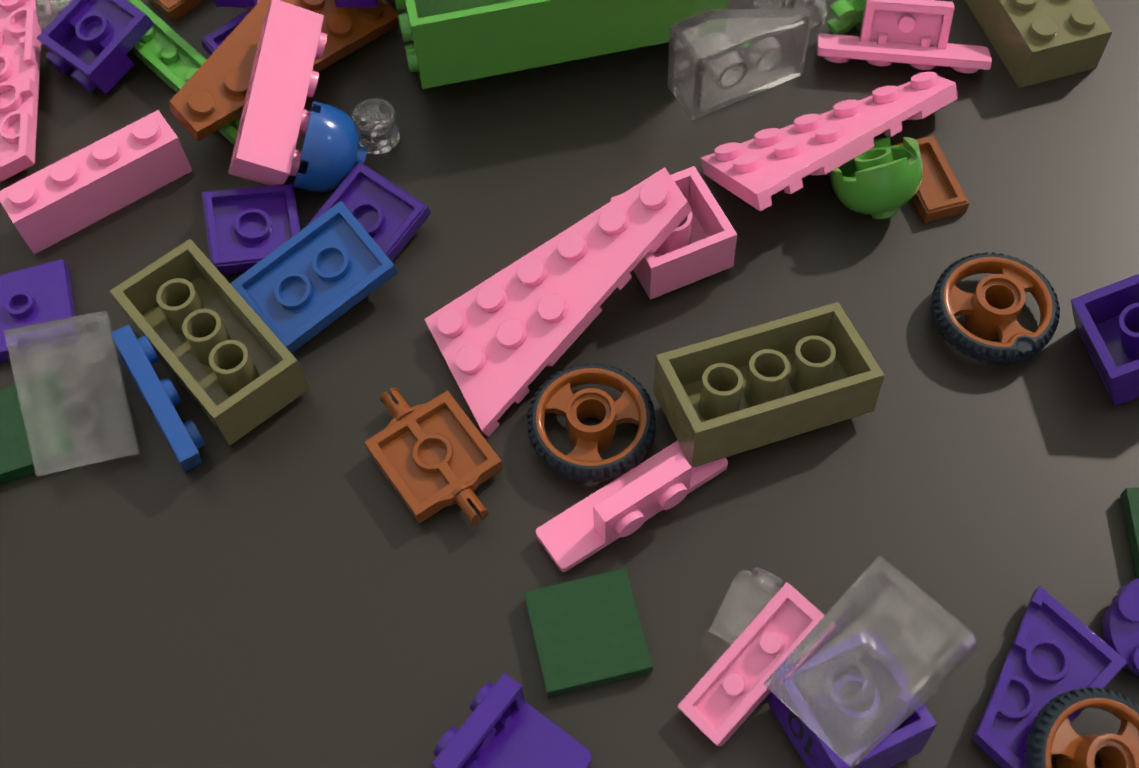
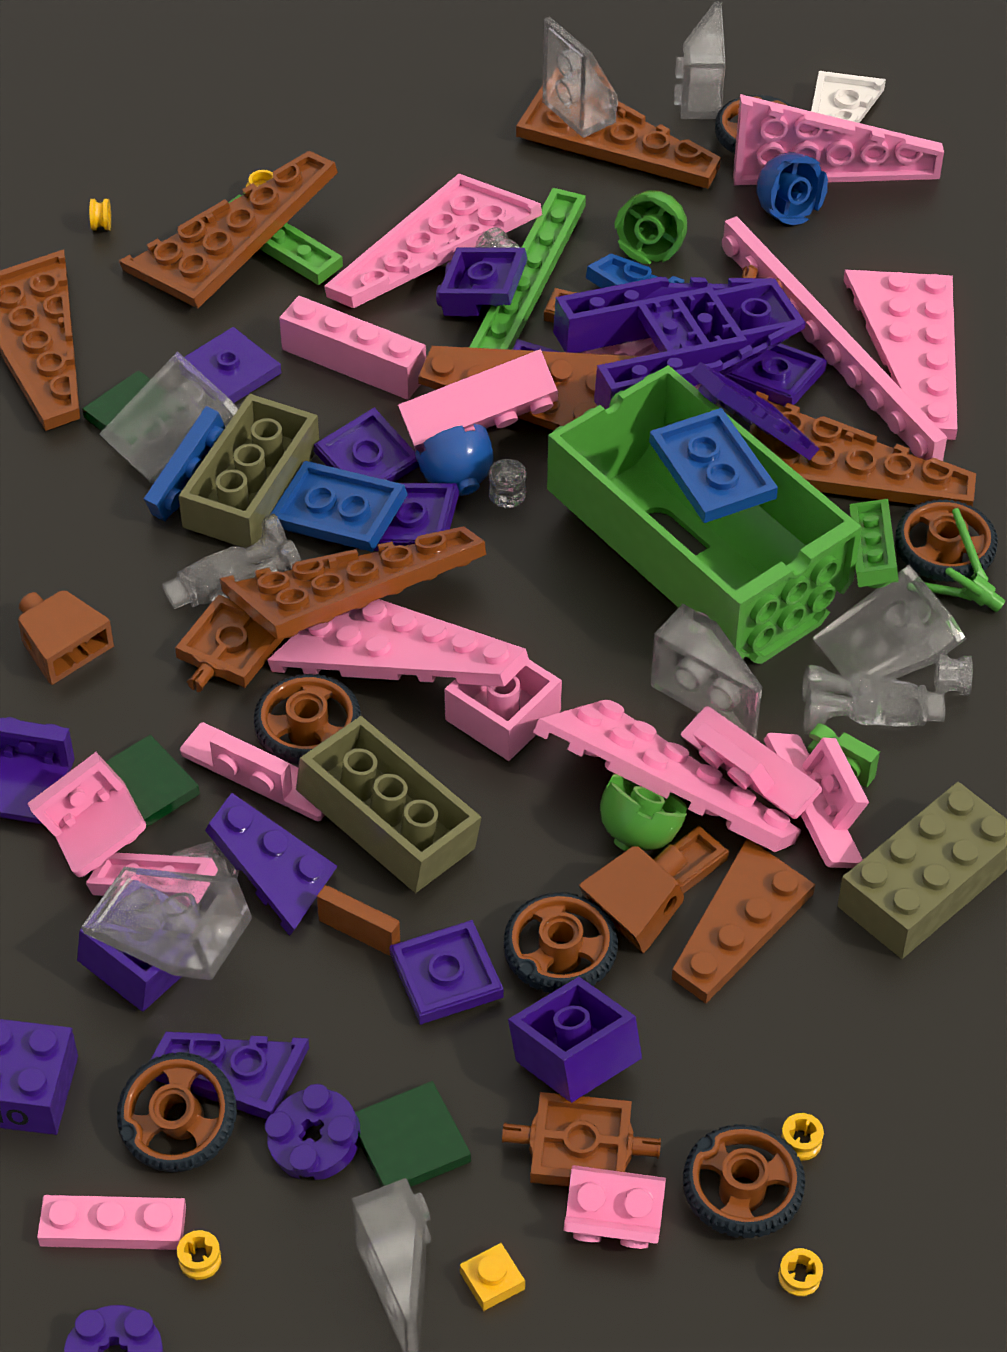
camera: 60 degrees right, 10 degrees down
(313, 635) = (62, 633): none -> dark orange torso
(329, 426) = (201, 582): none -> clear piece
(438, 317) = (344, 581): none -> dark orange wing
(640, 700) = (89, 814): none -> bright pink bracket
(779, 528) = (274, 860): none -> dark purple wing
(847, 72) = (750, 762): none -> bright pink bracket
(893, 475) = (357, 919): none -> dark orange tile
(970, 216) = (638, 892): none -> dark orange torso
(988, 422) = (446, 972): none -> dark purple plate
(1014, 158) = (743, 915): none -> dark orange wing

